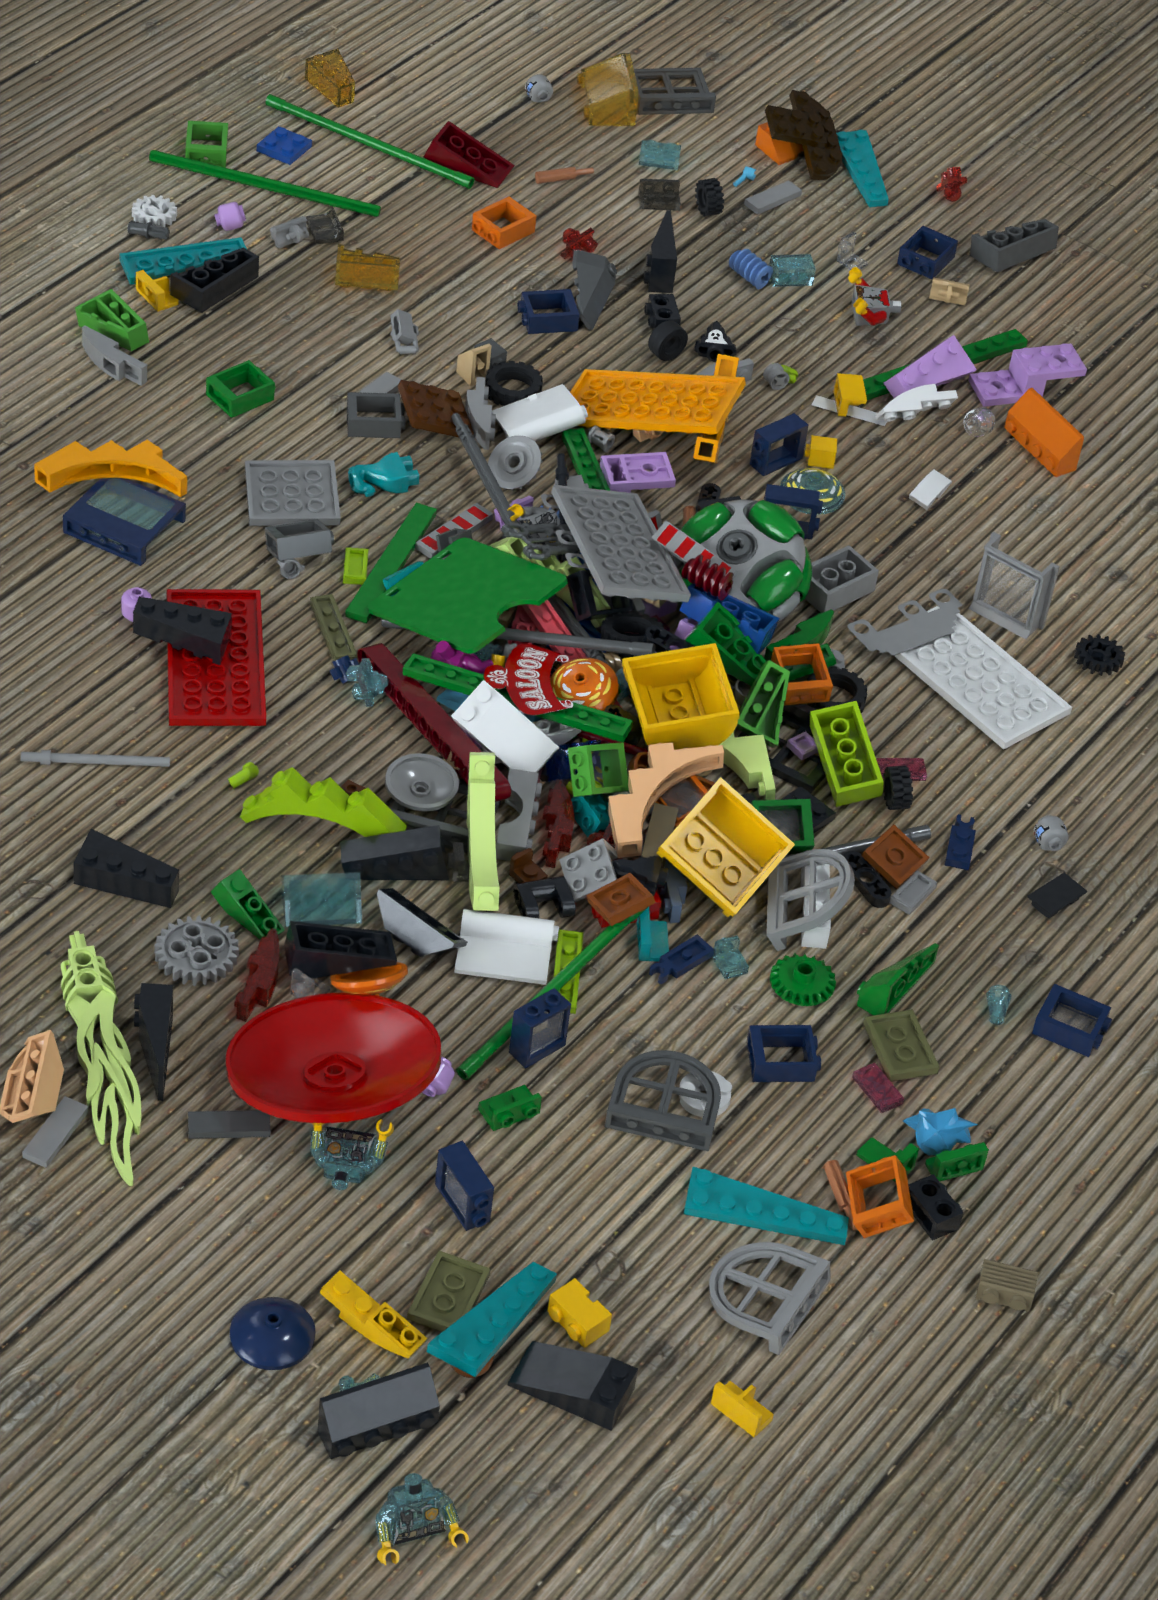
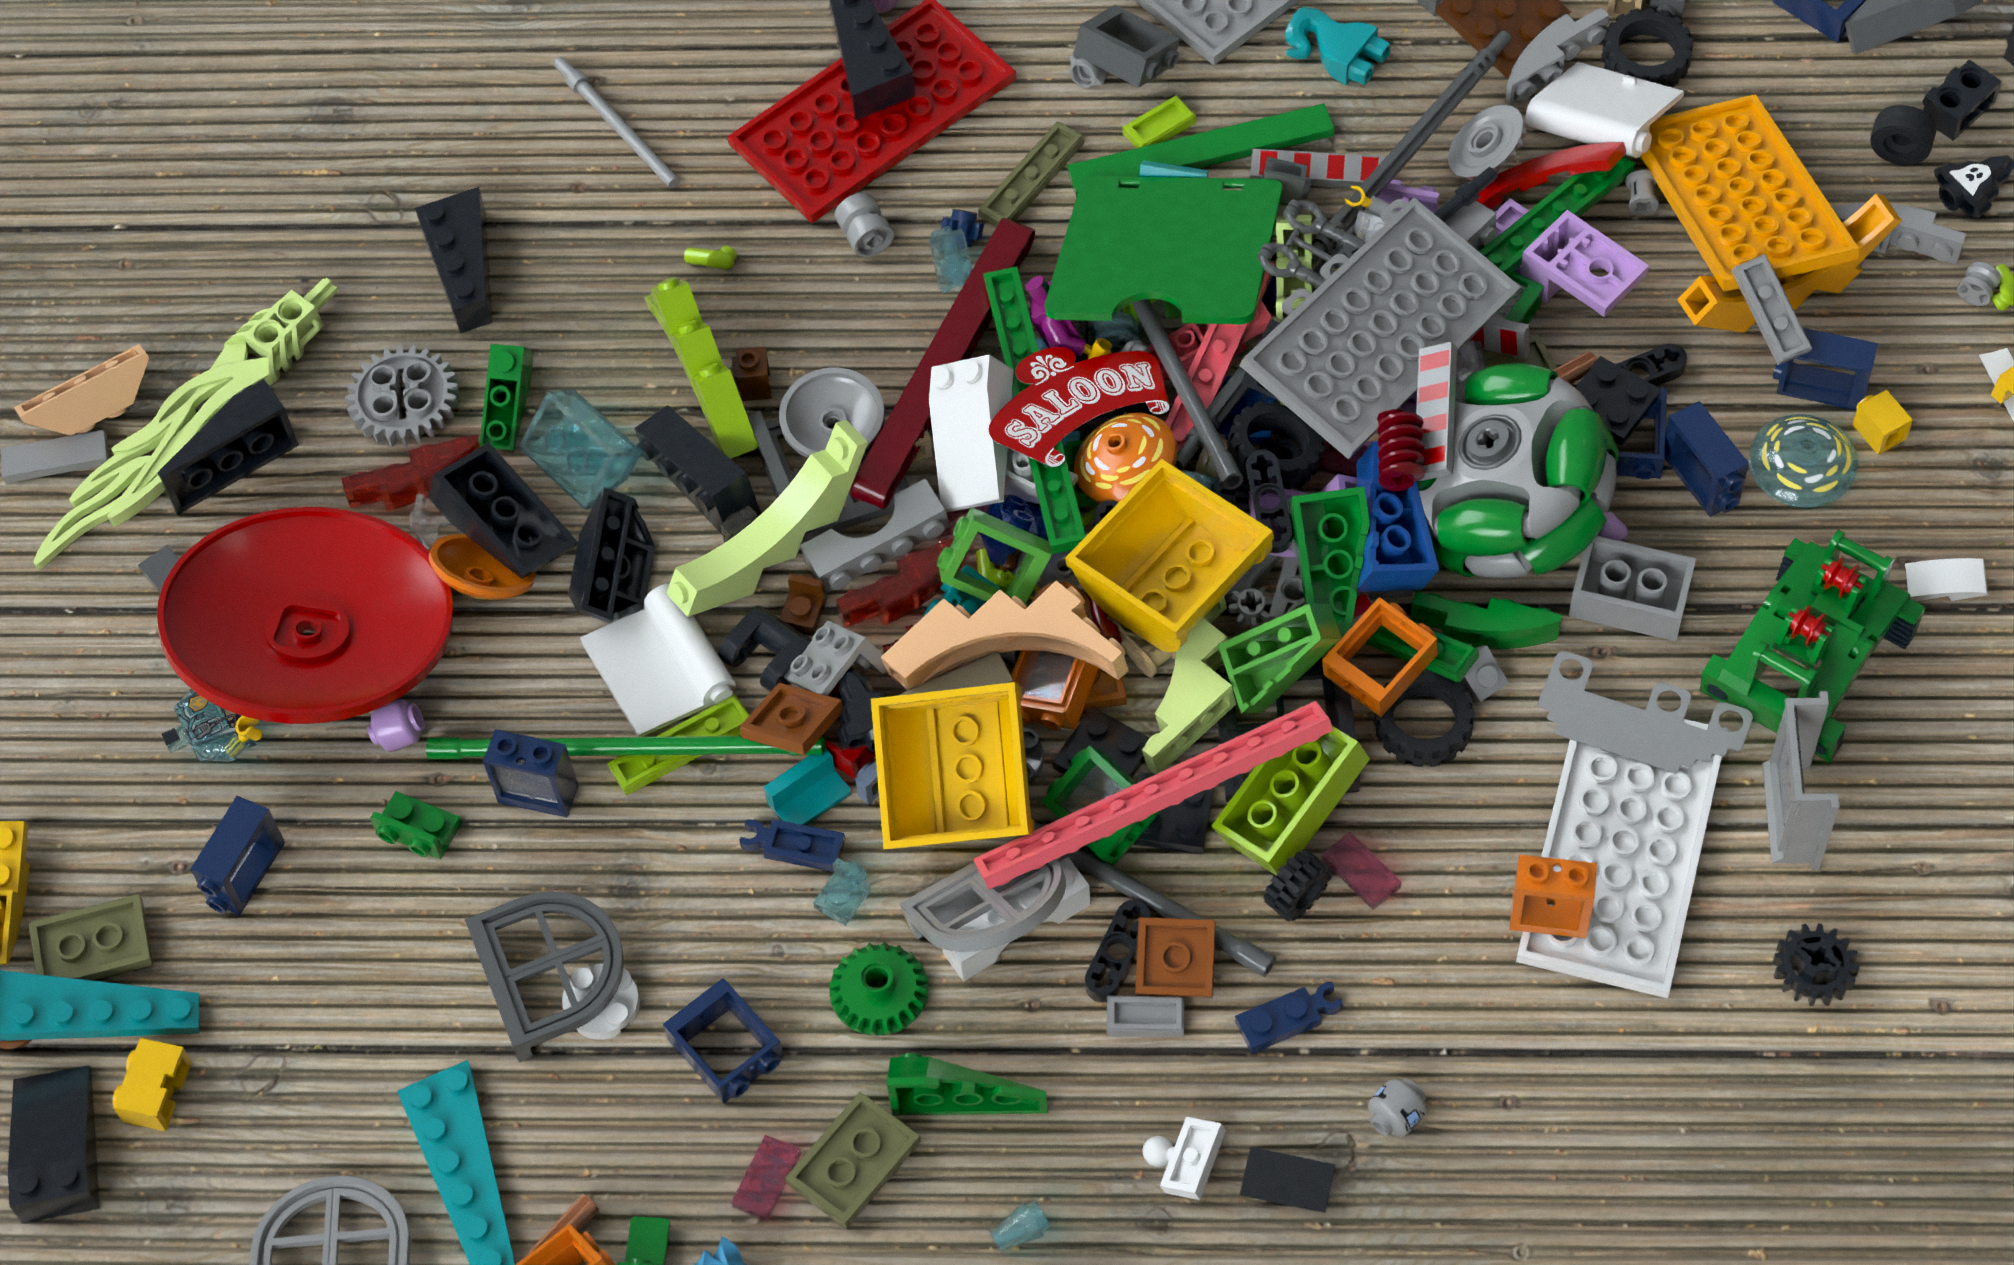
camera: 65 degrees right, 15 degrees up
(298, 702) = (864, 225): none -> light grey wheel
(563, 440) = (1535, 171): none -> red tile
(746, 425) = (1771, 309): none -> light grey tile
(813, 791) = (1152, 795): none -> coral plate
(929, 518) = (1811, 622): none -> green container
(999, 699) = (1568, 891): none -> orange window
(1012, 919) = (1189, 1159): none -> white plate

